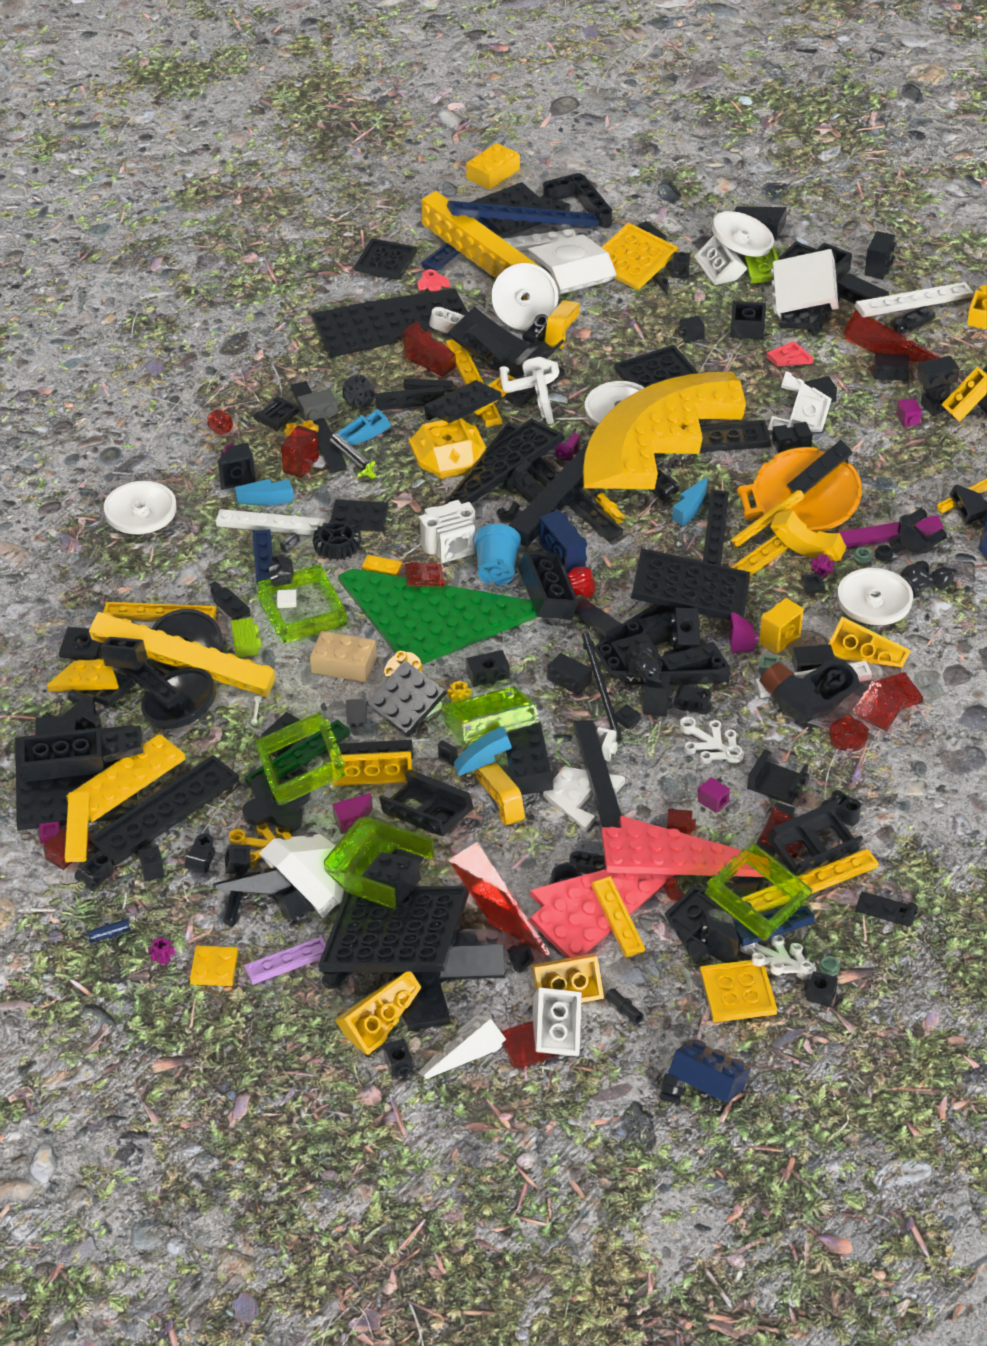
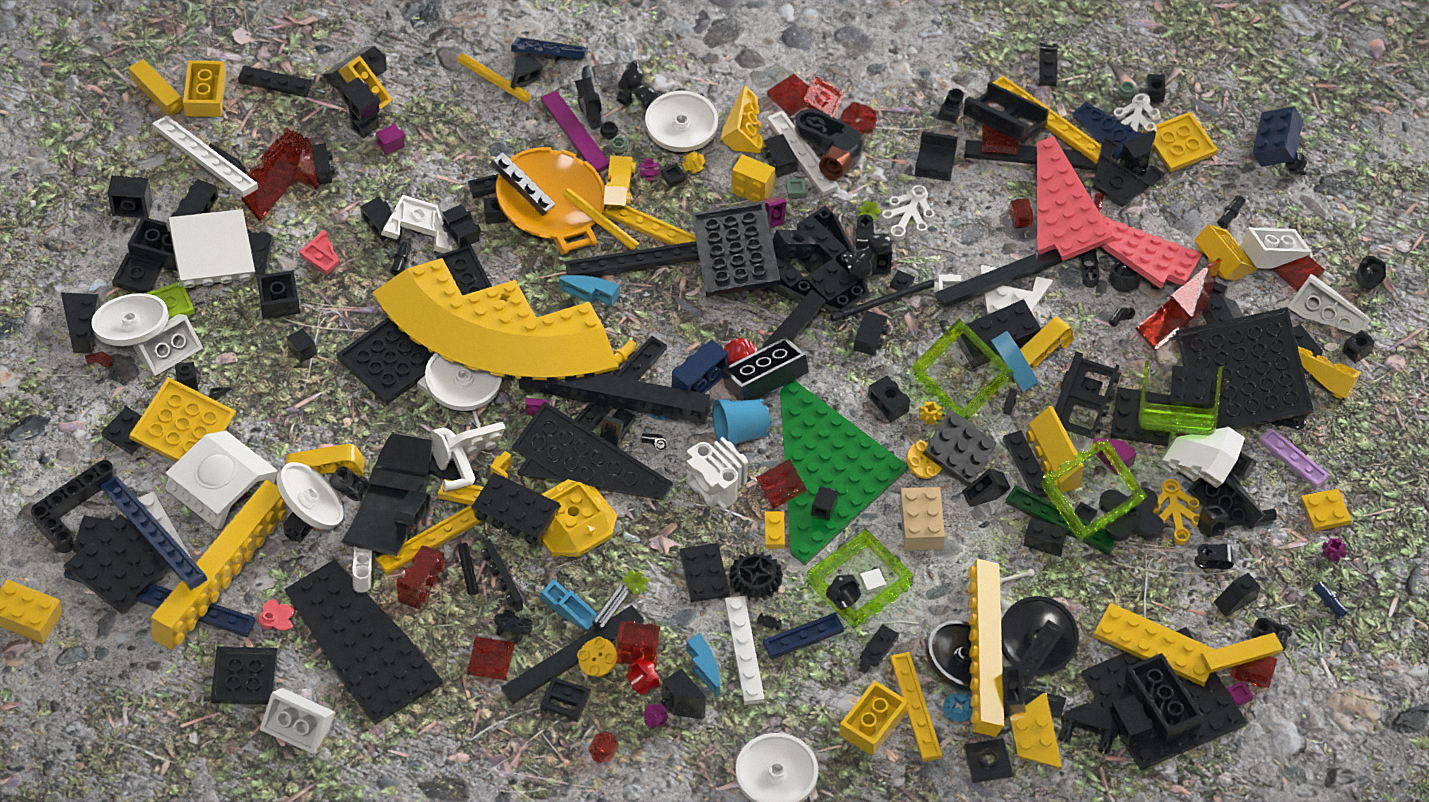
camera: 110 degrees left, 10 degrees up
(122, 743) = (1121, 653): black plate -> none
(156, 574) = (873, 718): none -> yellow brick
(164, 809) = (1172, 604): black plate -> none
(245, 638) = (928, 612): lime brick -> none
(270, 454) = (642, 676): none -> red hair
(317, 405) = (552, 652): dark grey brick -> none
(333, 276) = (296, 720): none -> white slope
(333, 380) = (491, 658): none -> clear red plate
(384, 589) = (824, 503): none -> black brick
(491, 1101) = (1370, 272): none -> black hair
(515, 413) = (501, 464): none -> yellow bracket
(522, 871) = (1121, 314): none -> black arm
(618, 917) = (1148, 229): yellow tile -> none
(713, 794) = (977, 196): magenta brick -> none
(722, 708) = (869, 209): none -> lime plant
(769, 399) = (400, 258): none -> black axle
(773, 872) = (1097, 112): clear neon green window -> none
(821, 596) = (693, 162): none -> yellow gear

